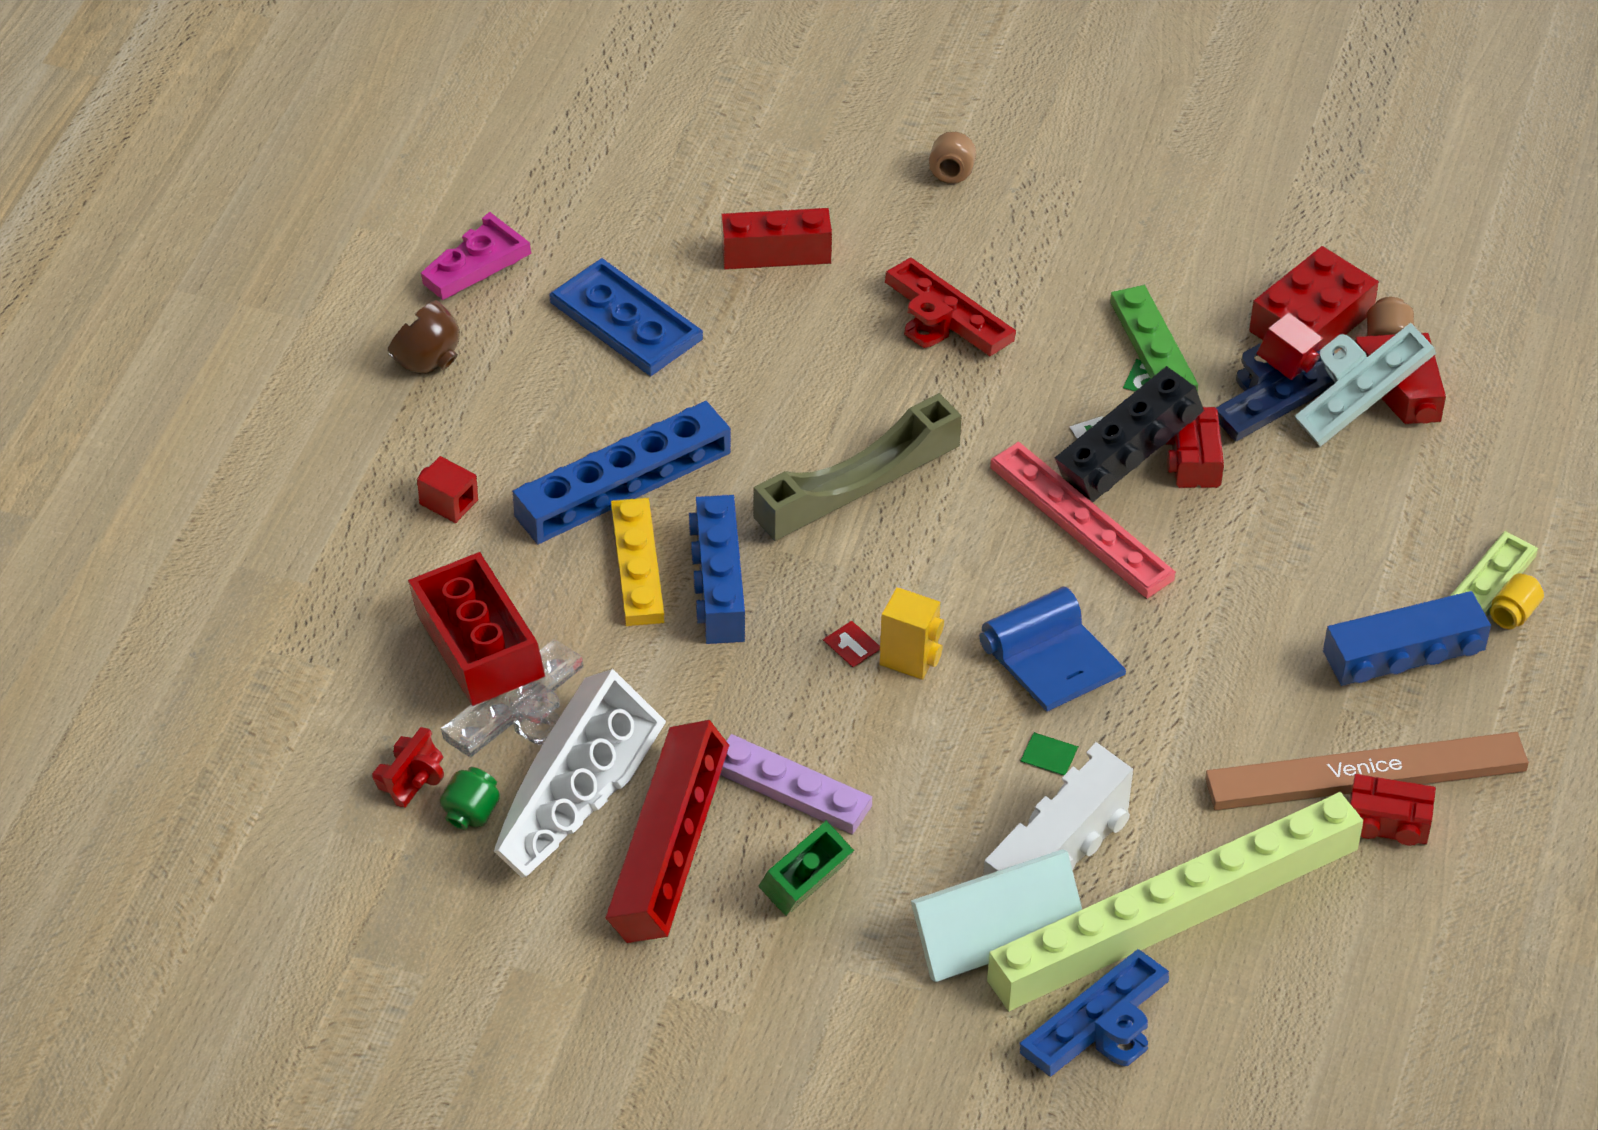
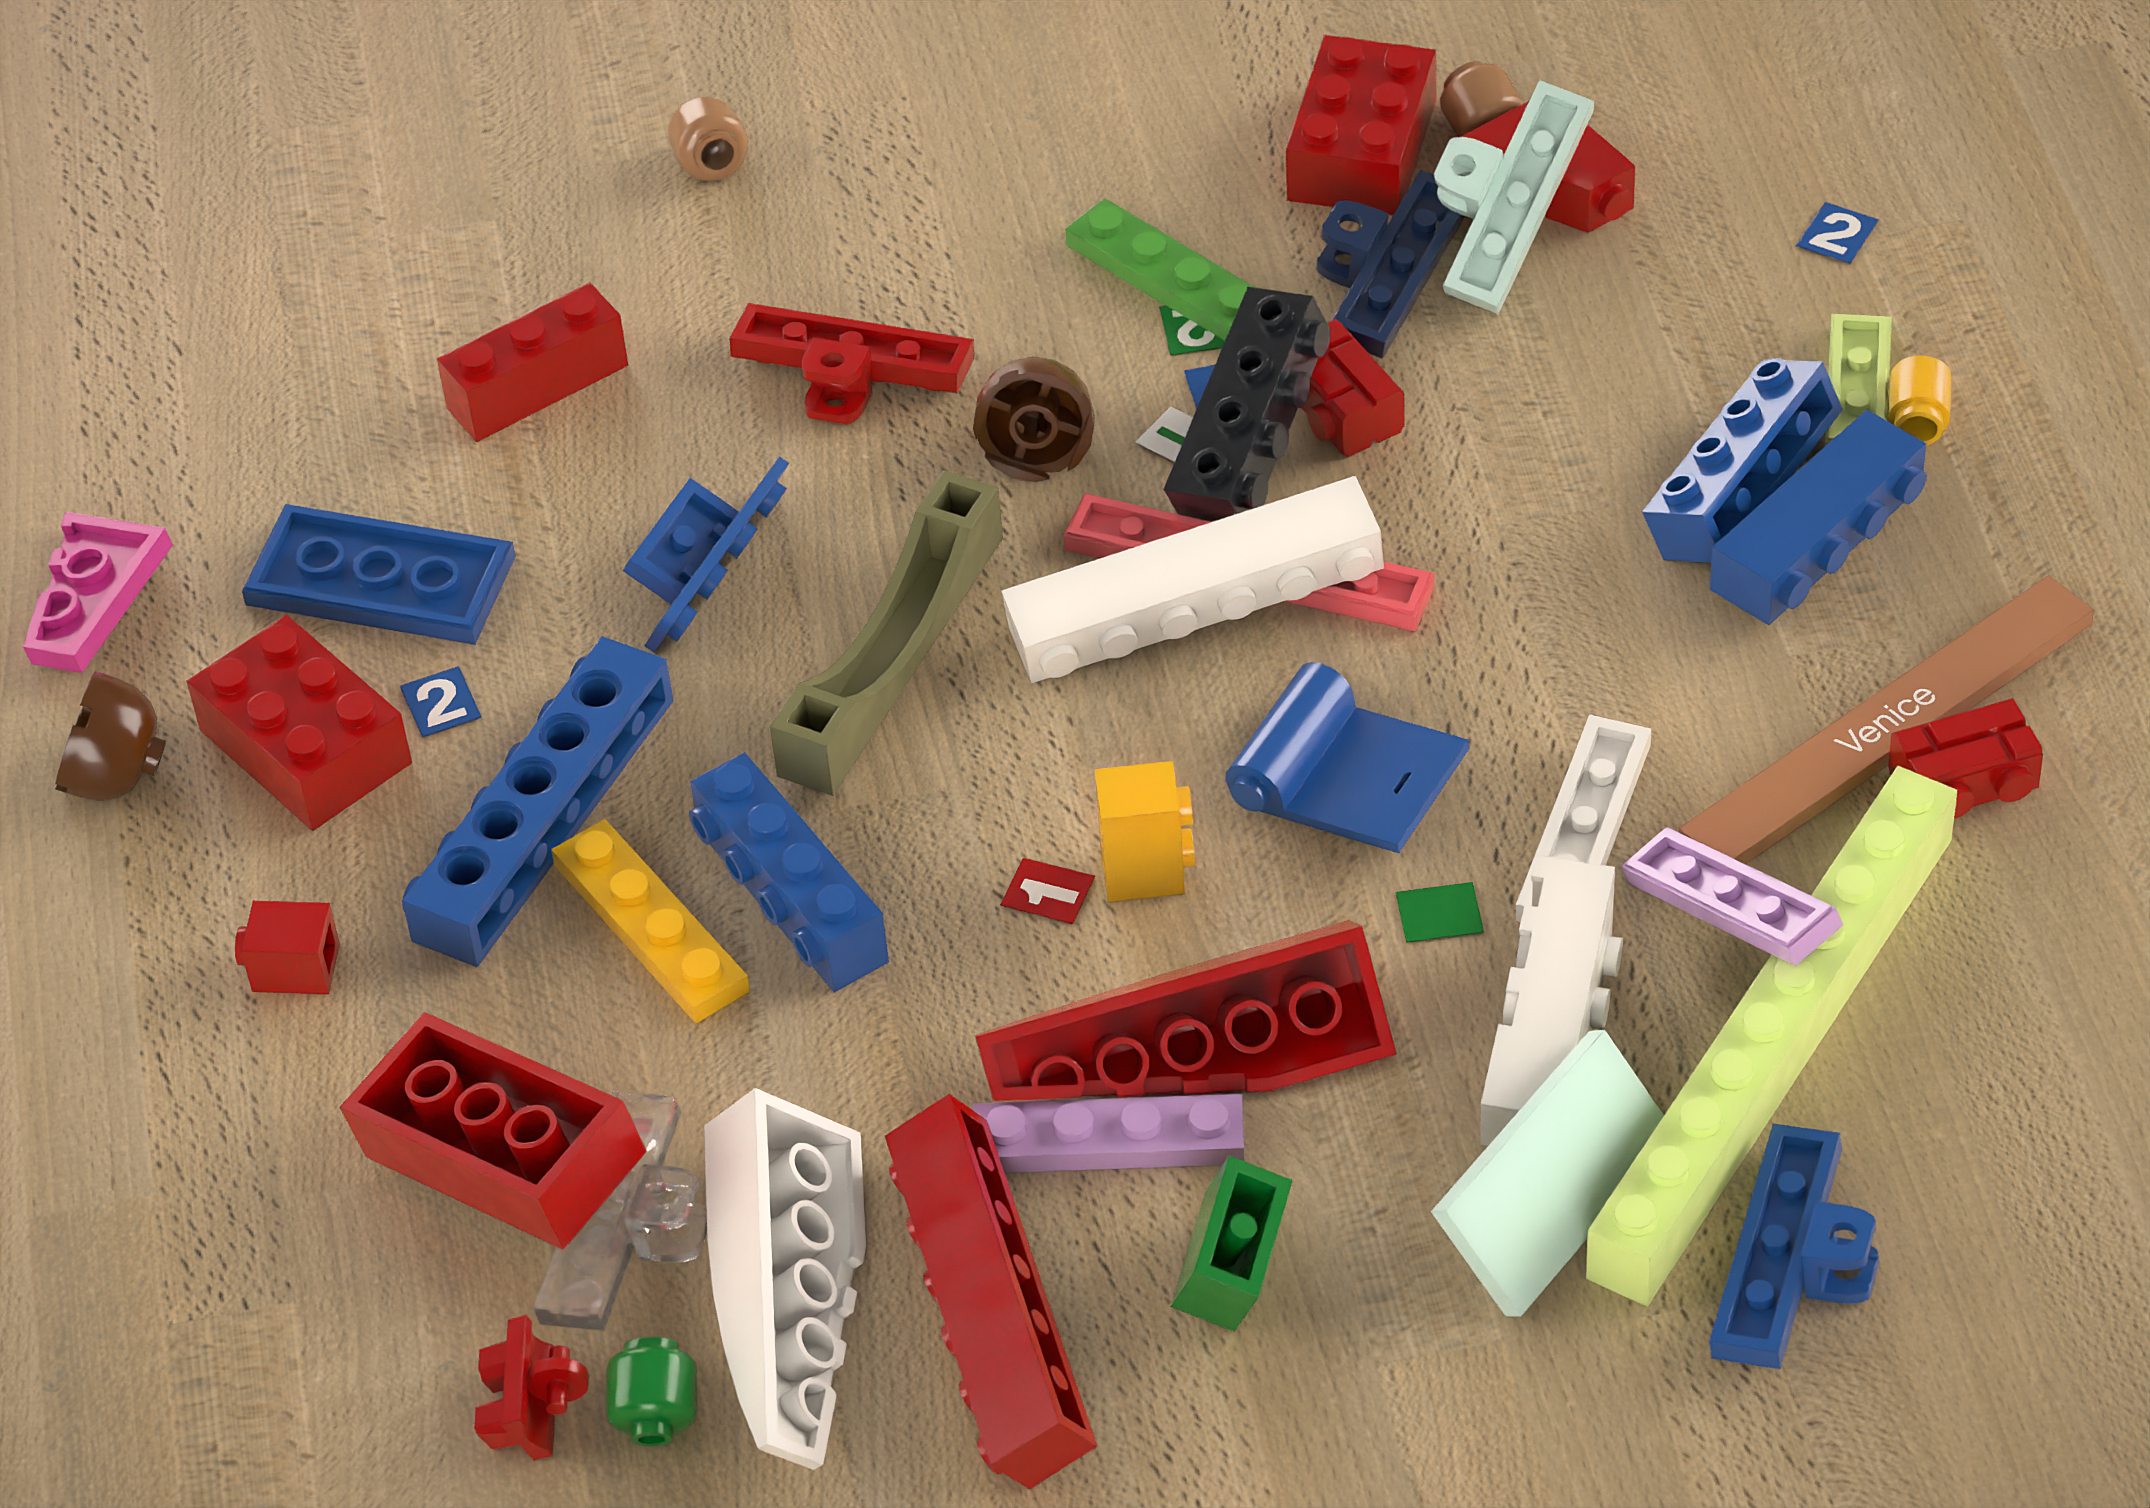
camera: 25 degrees left, 0 degrees up
(529, 375) = (299, 722): none -> red brick
(612, 398) = (440, 701): none -> blue sticker
(792, 372) = (690, 541): none -> blue bracket
(881, 754) = (1205, 1028): none -> red wedge
(1014, 387) = (1034, 418): none -> reddish brown cylinder
(1037, 513) = (1193, 579): none -> white brick
(1170, 733) = (1593, 796): none -> white plate
(1199, 817) = (1732, 896): none -> lavender tile
(1290, 346) = (1389, 188): red brick -> none
(1389, 584) = (1742, 457): none -> blue brick
(1547, 487) = (1837, 232): none -> blue sticker

